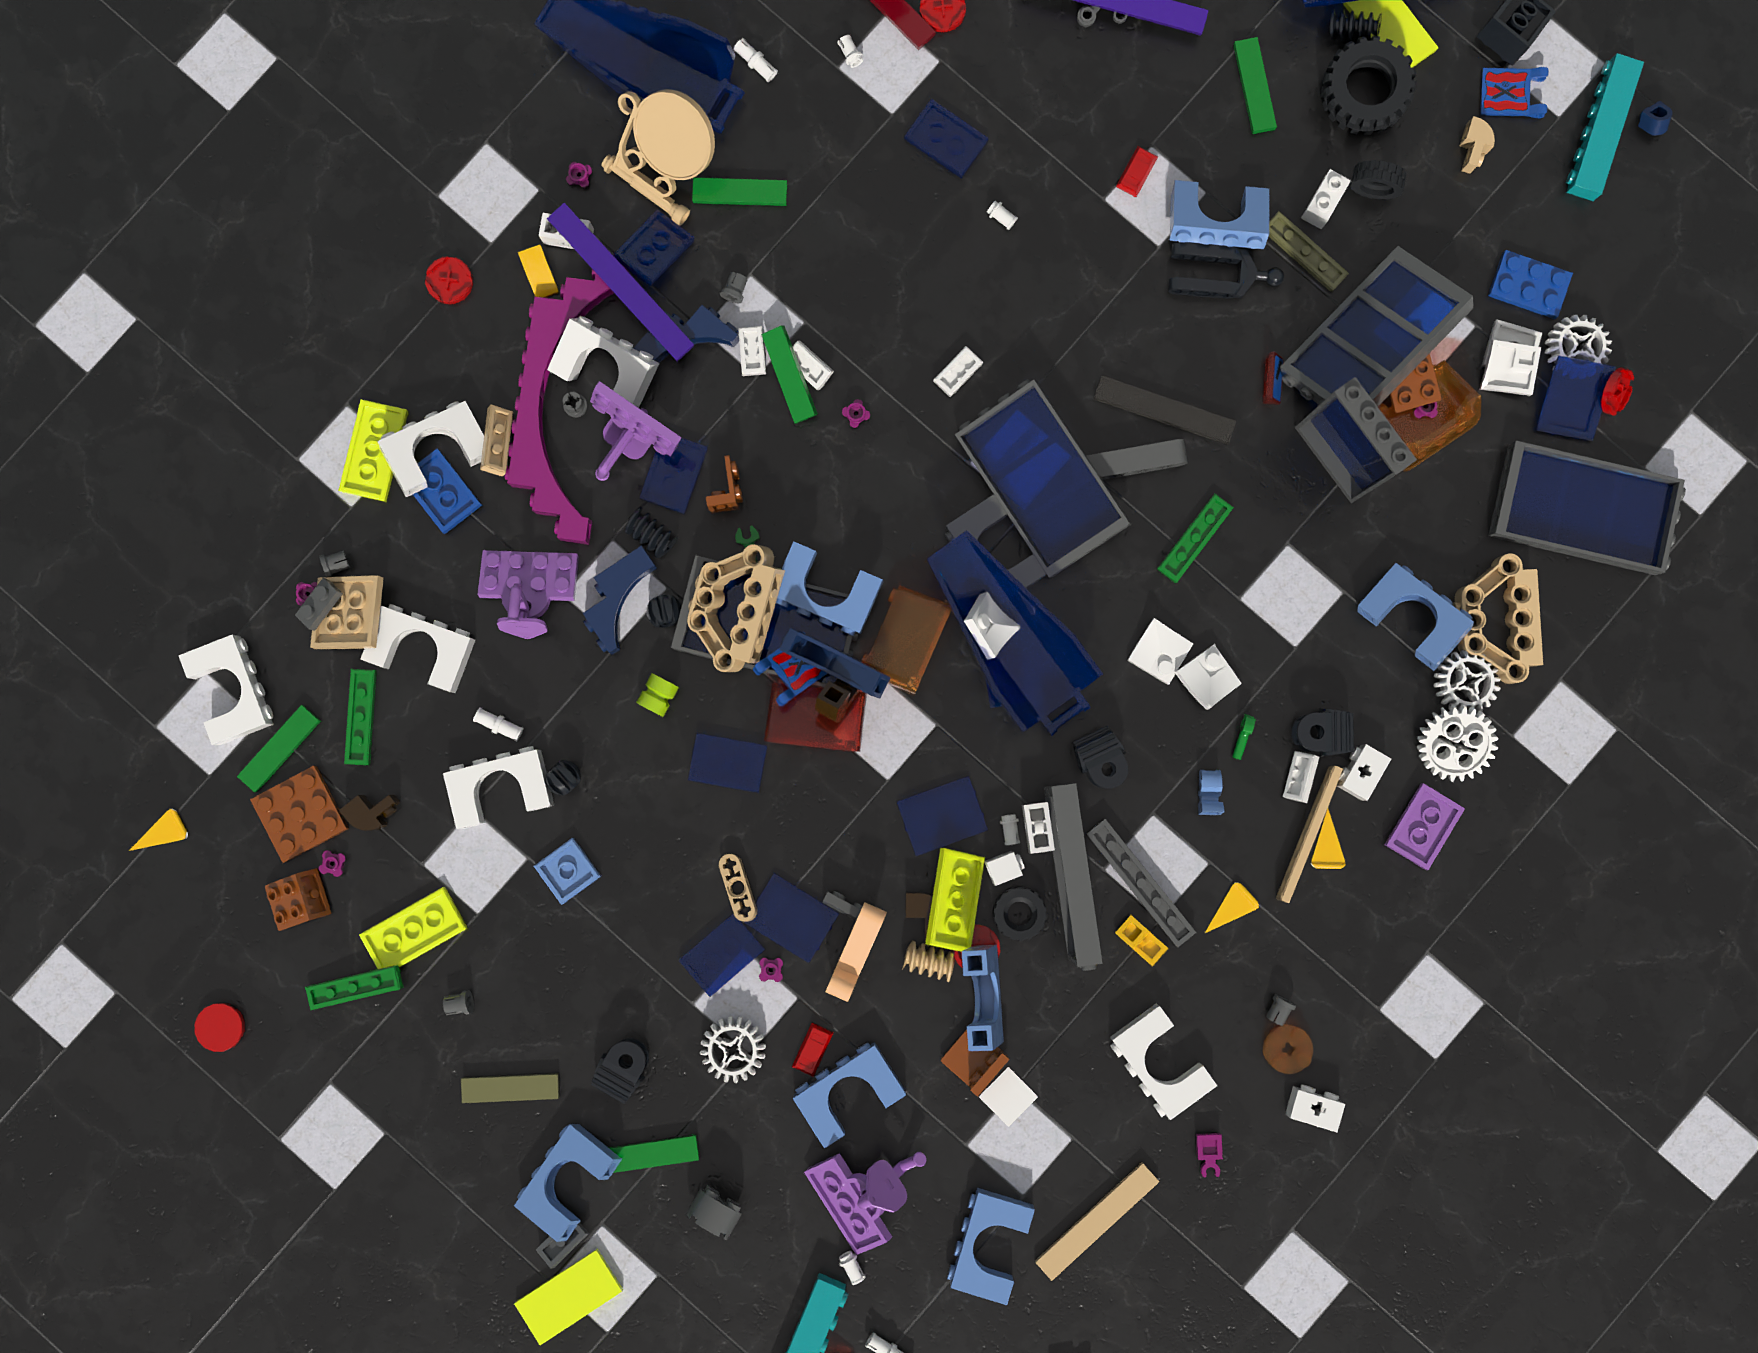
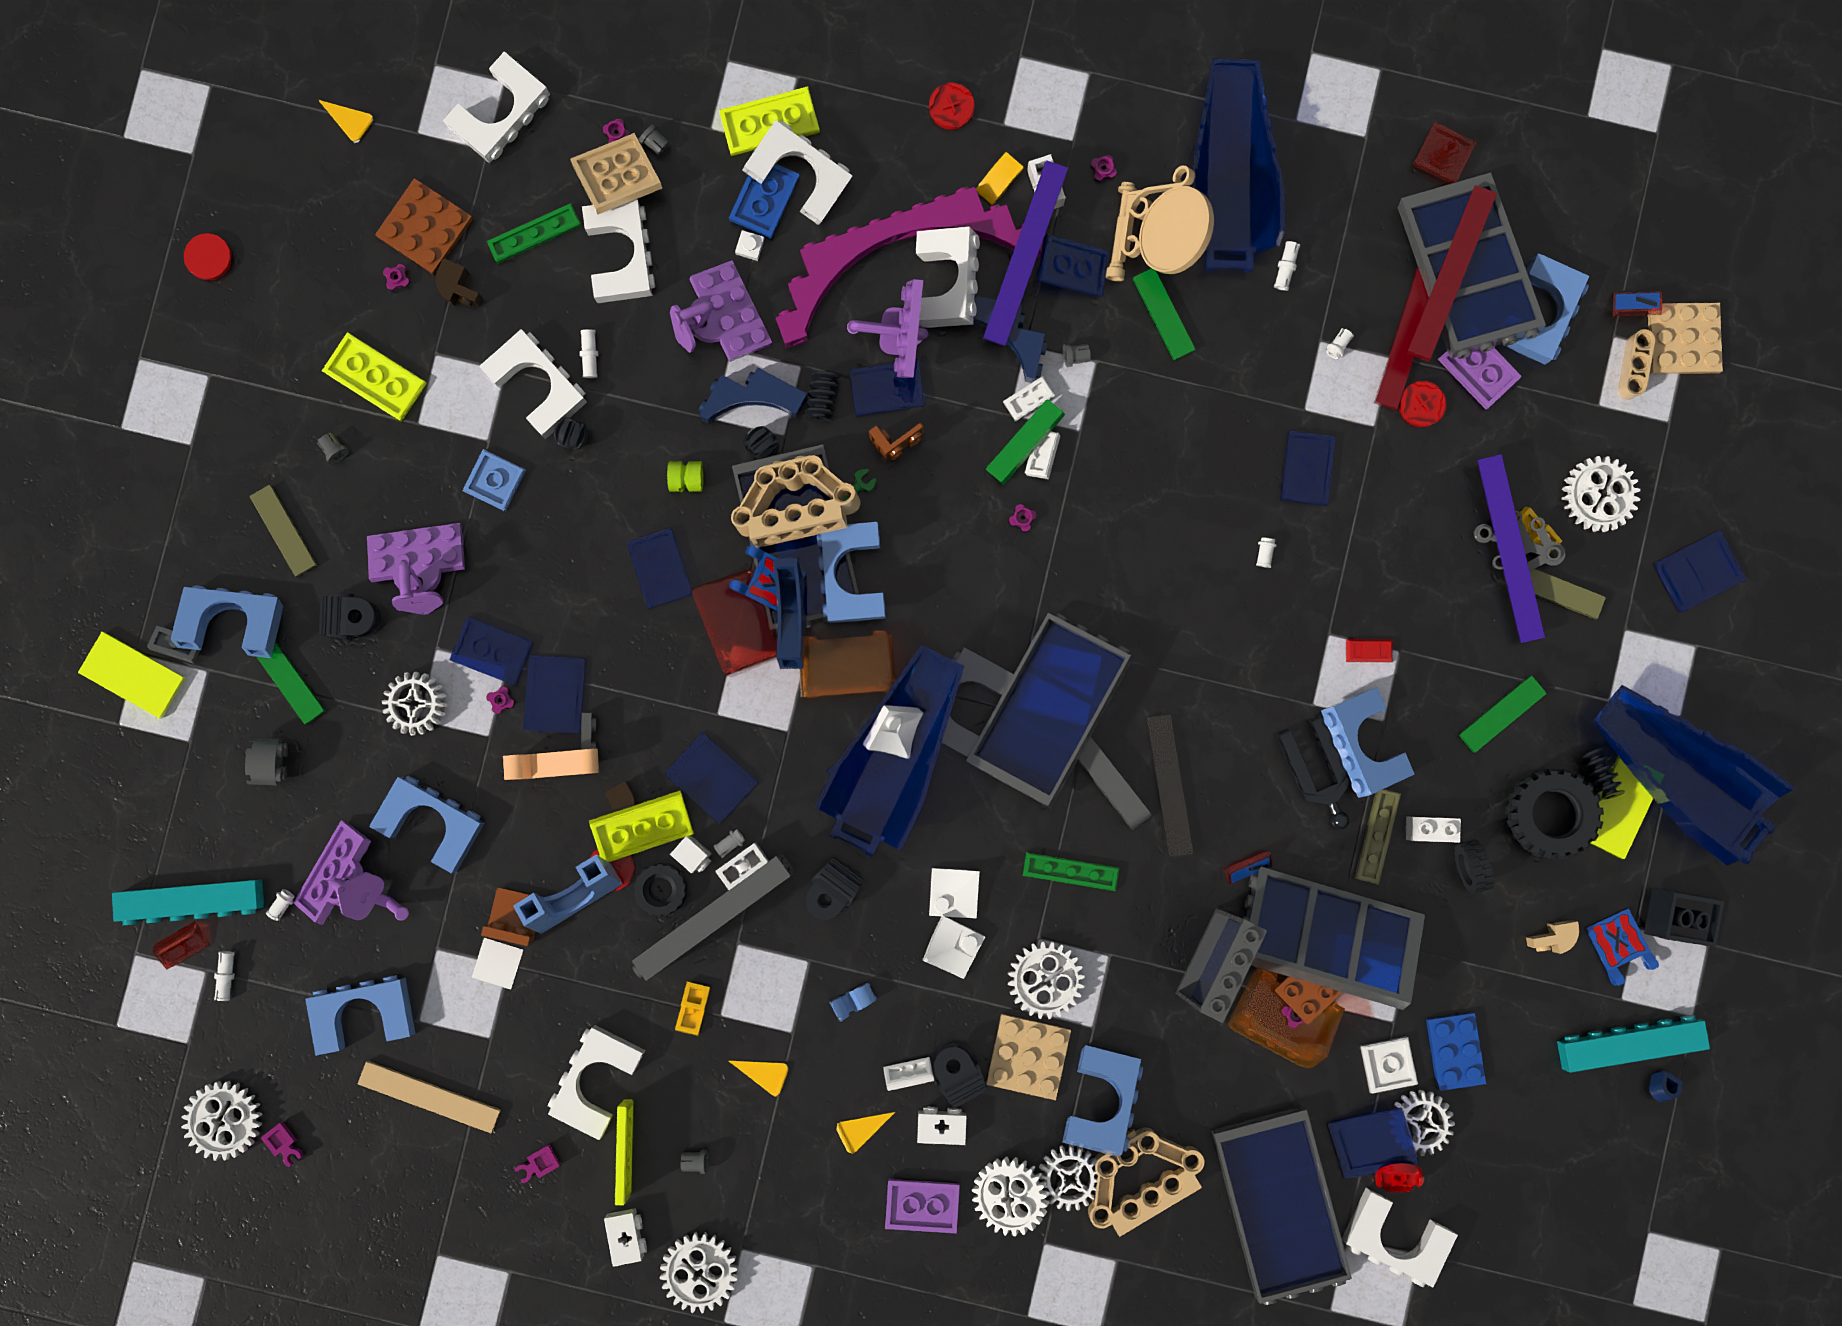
camera: 50 degrees right, 0 degrees up
(279, 748) = (470, 179): green tile -> none
(297, 899) = (350, 264): dark orange bracket -> none
(318, 604) = (610, 146): dark grey plate -> none
(354, 987) = (300, 352): green tile -> none
(477, 527) = (749, 245): none -> white plate
(496, 440) = (832, 221): tan tile -> none
(581, 404) = (900, 278): dark grey bush -> none
(600, 978) = (416, 557): none -> medium lavender plate
(738, 868) = (538, 641): tan beam -> none
(812, 1049) = (450, 772): red tile -> none
(835, 699) = (757, 630): dark brown brick -> none
(929, 960) = (578, 832): tan piece -> none
(958, 371) = (1106, 587): white plate -> none
(1141, 883) = (742, 981): dark grey plate -> none
(1240, 1068) = (624, 1151): none -> neon yellow tile
(1246, 729) = (924, 1004): green bar -> none
(1299, 1057) = (664, 1200): clear orange plate -> none
(1302, 608) = (1058, 997): none -> white gear
(1309, 833) = (862, 1107): tan tile -> none
(1340, 662) = (1028, 1057): none -> tan plate
(1388, 1079) = (685, 1288): none -> white gear
(1510, 368) = (1370, 1072): white plate -> none
(1700, 412) = (1421, 1263): none -> white arch

